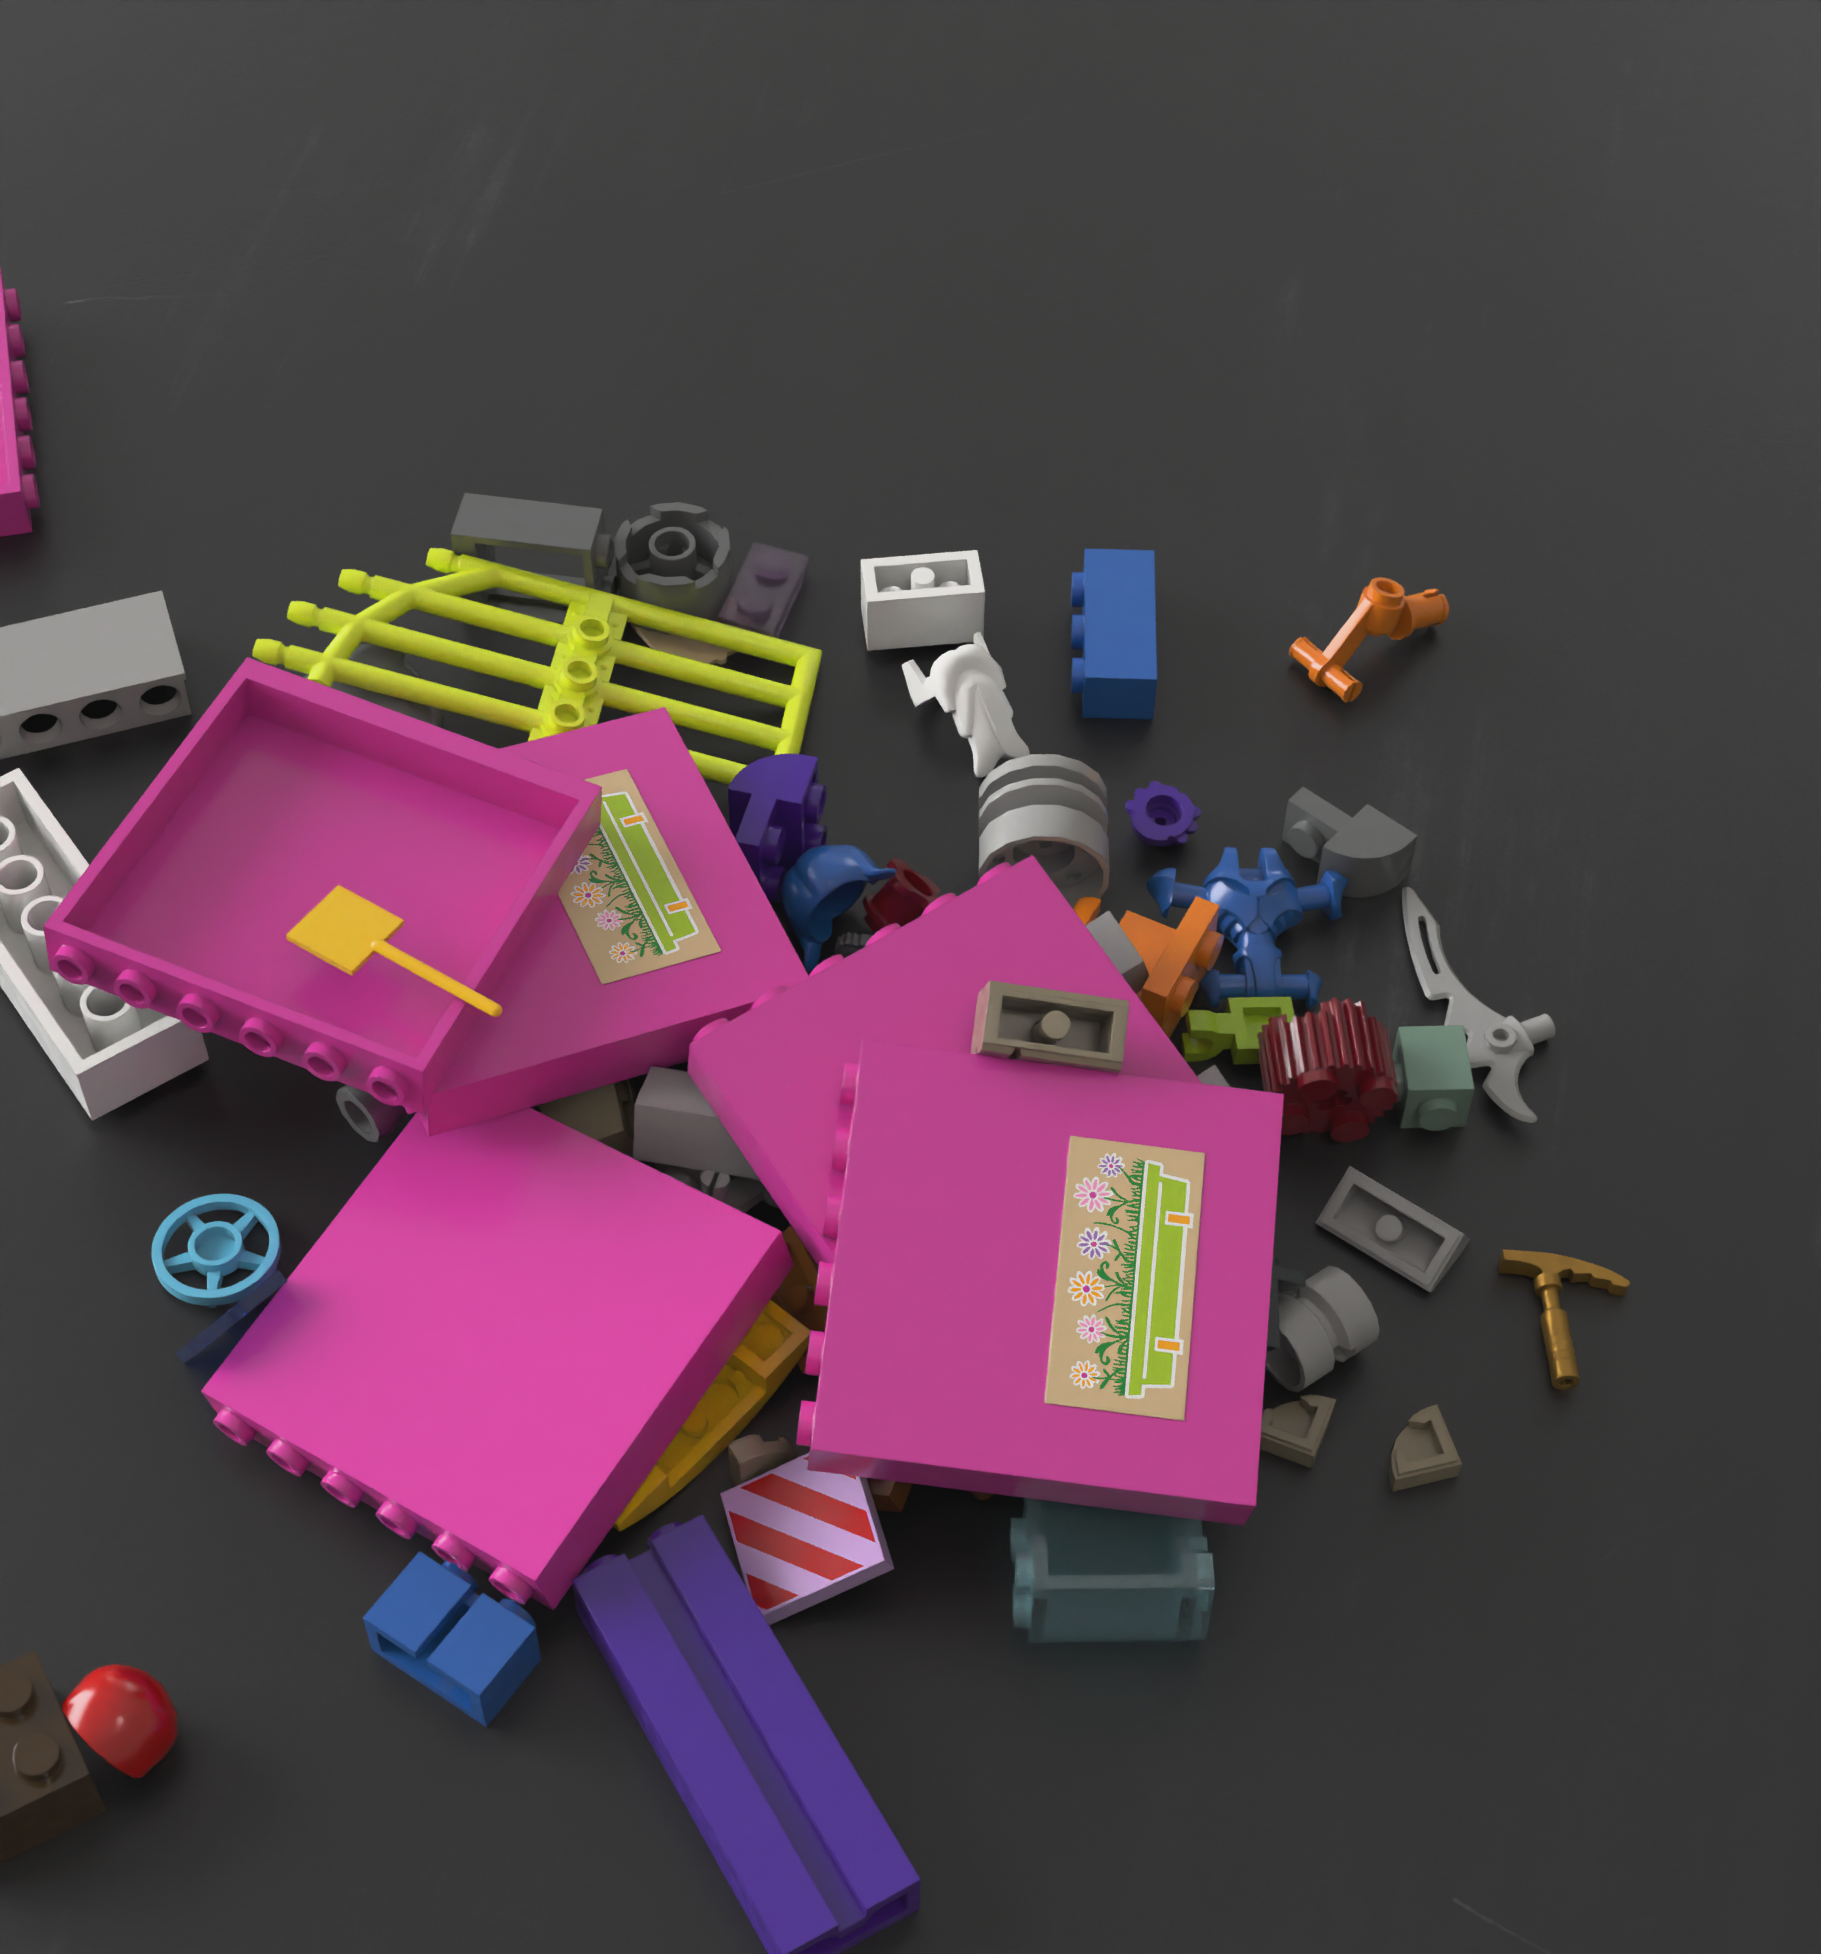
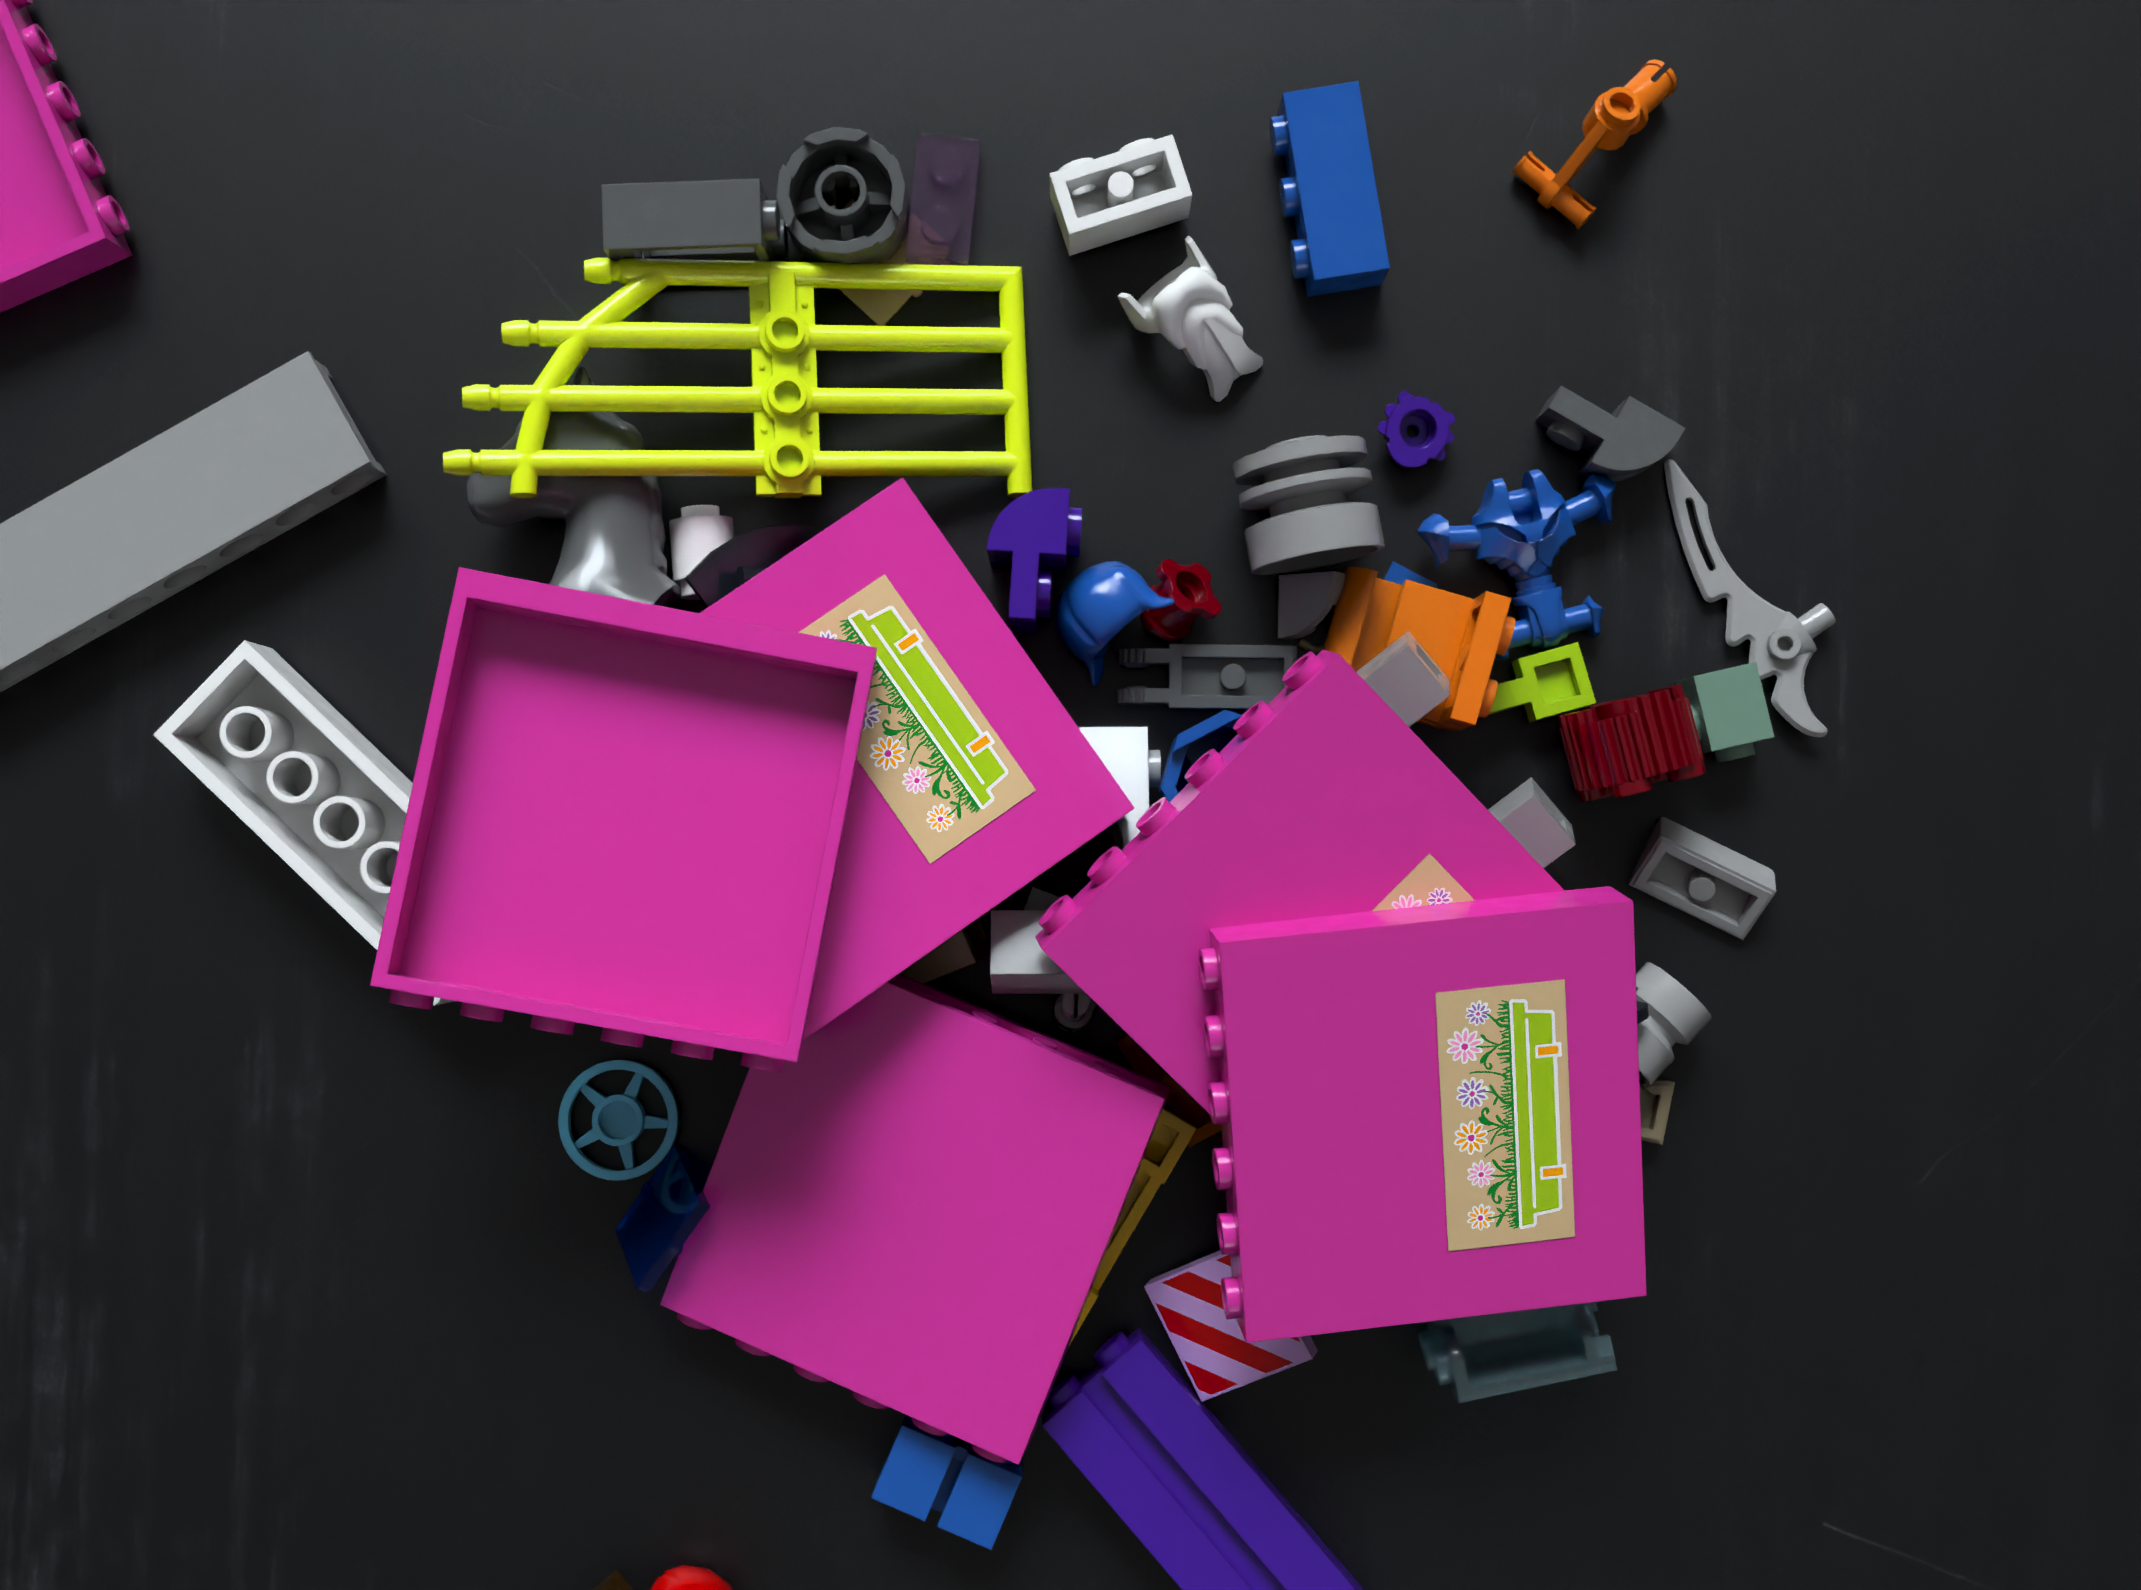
camera: 10 degrees left, 35 degrees up
(351, 930) = (676, 905): yellow piece -> none
(753, 1456) = (1175, 1247): dark tan tile -> none
(1050, 1026) = (1398, 884): dark tan brick -> none
(1423, 1452) = (1754, 1112): dark tan tile -> none
(1547, 1273) = (1862, 952): pearl gold piece -> none

